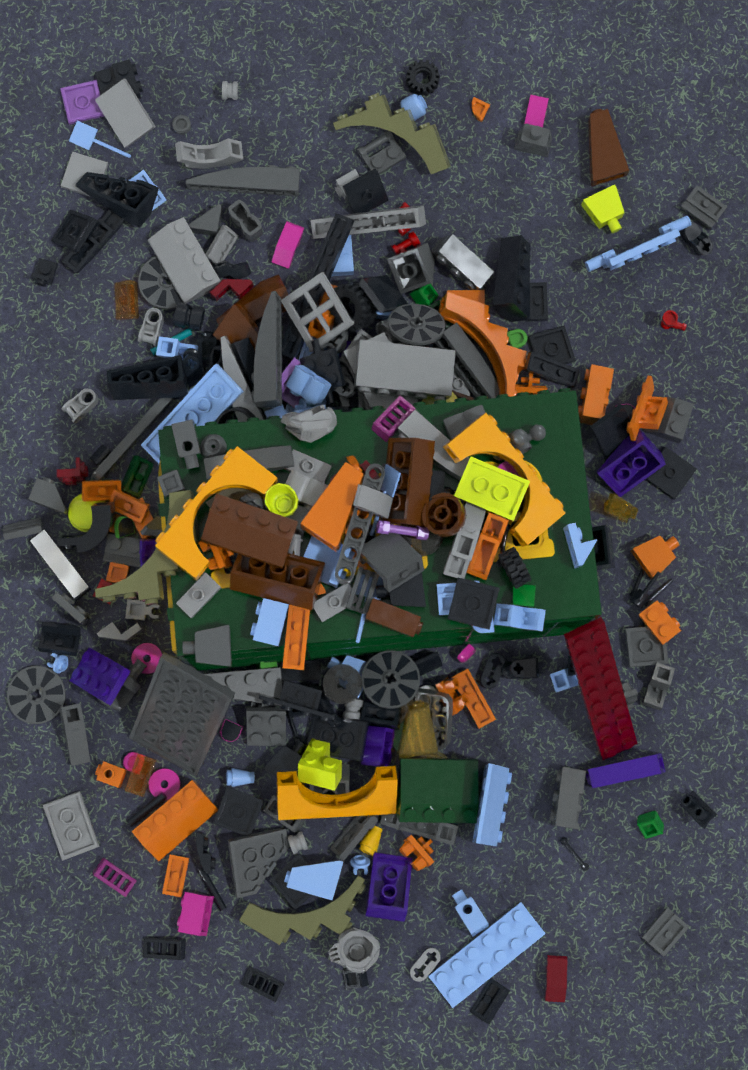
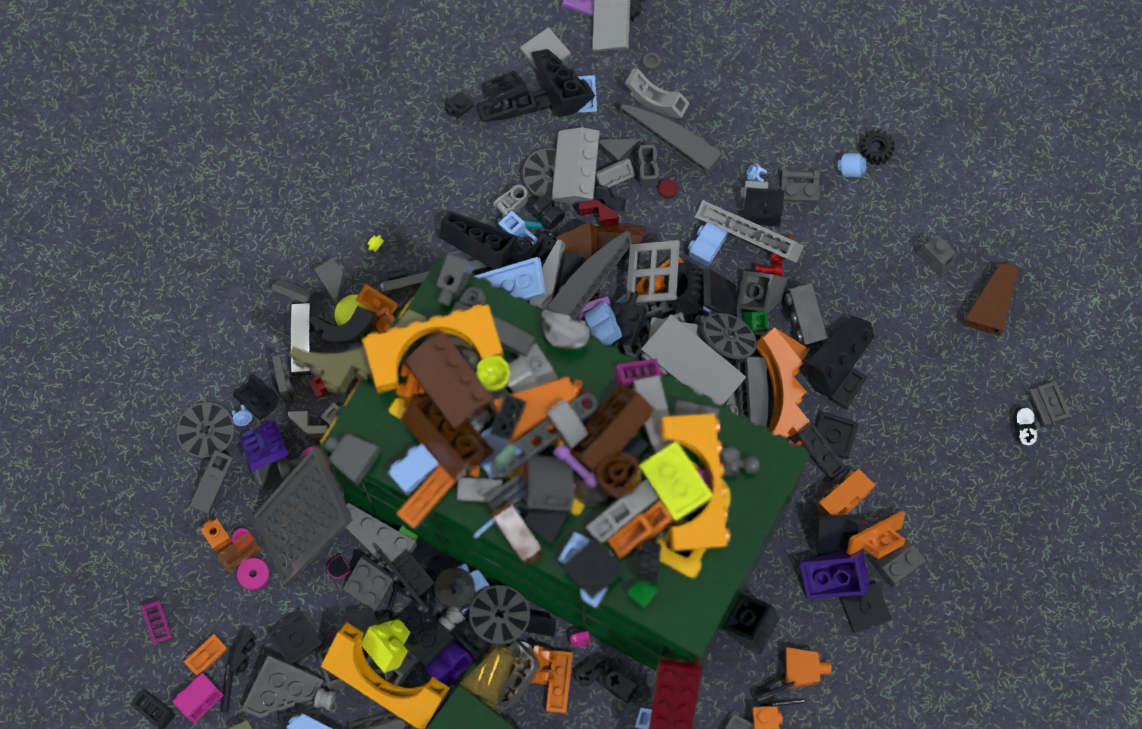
camera: 40 degrees right, 10 degrees down
(62, 440) = (375, 243): none -> neon yellow plate
(71, 825) = (154, 555): light grey tile -> none
(73, 476) = (363, 275): dark red bracket -> none
(79, 405) = (407, 227): light grey piece -> none
(84, 136) = (566, 22): light blue piece -> none
(126, 300) = (508, 168): clear orange slope -> none
(146, 809) = (223, 583): black piece -> none
(171, 483) = (417, 303): dark grey plate -> none
(175, 820) = (239, 608): orange slope -> none
(198, 595) = (372, 408): light grey plate -> none
(230, 90) = (709, 58): light grey wheel -> none
(239, 777) = (316, 610): light blue cone -> none
(273, 228) = (668, 188): none -> dark red tile
(287, 244) = (671, 205): dark pink slope -> none
(324, 263) = (688, 241): black plate -> none
(324, 530) = (508, 418): none -> black slope
(335, 167) = (753, 173): none -> light blue plate
(345, 565) = (505, 457): none -> sand green tile
(378, 114) = (842, 195): olive arch -> none
(388, 487) = (591, 422): light blue piece -> none
(479, 108) = (909, 202): orange tile -> none
(517, 338) = (810, 407): bright green tile -> none
(519, 617) = (626, 608): light blue slope -> none
(536, 110) = (957, 233): dark pink tile -> none
(578, 550) = (718, 587): light blue slope -> none
(605, 208) = (960, 349): neon yellow torso -> none
(620, 508) = (799, 606): clear yellow hips -> none
(667, 236) = (957, 400): light blue plate -> none
(669, 320) = (952, 478): red piece -> none

